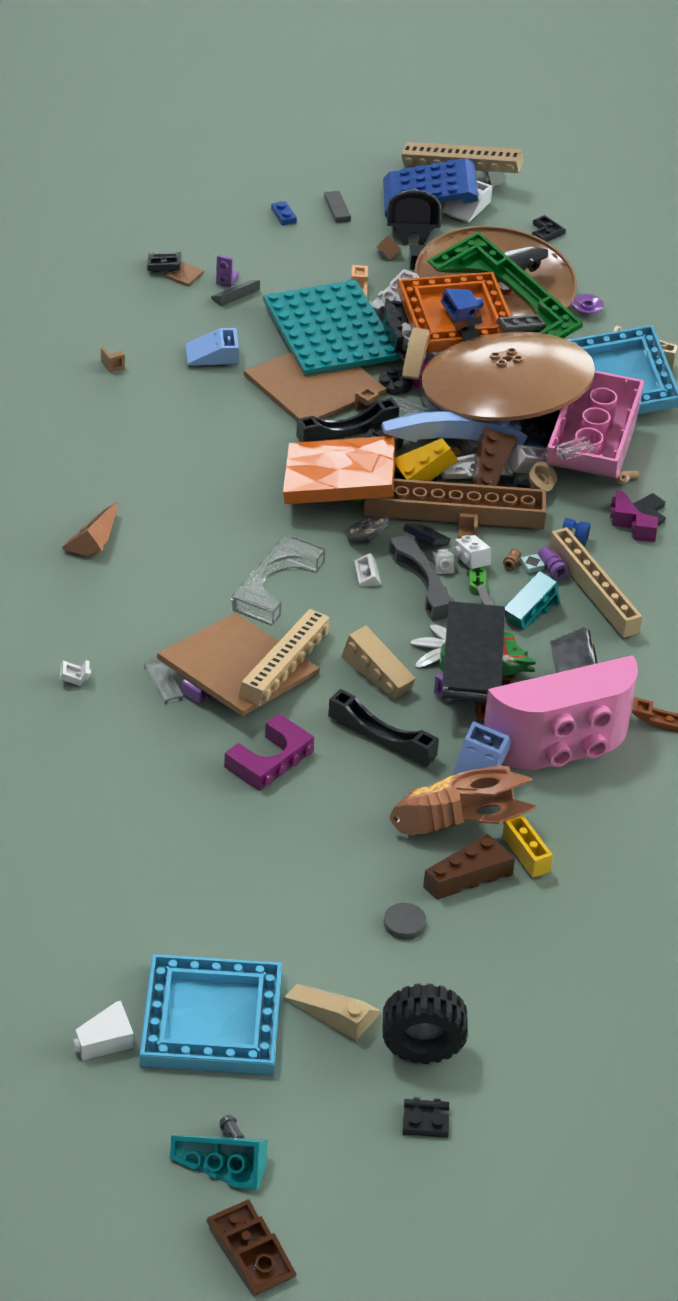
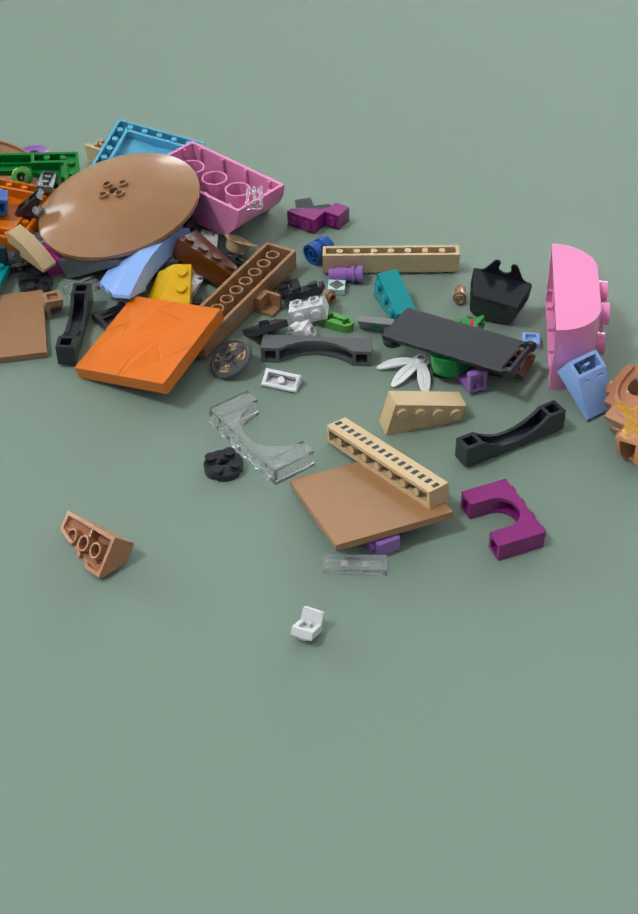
camera: 60 degrees left, 0 degrees up
(240, 570) = (214, 464): none -> black plate
(488, 533) = (292, 289): none -> black plate
(519, 306) = (16, 174): none -> bright green head

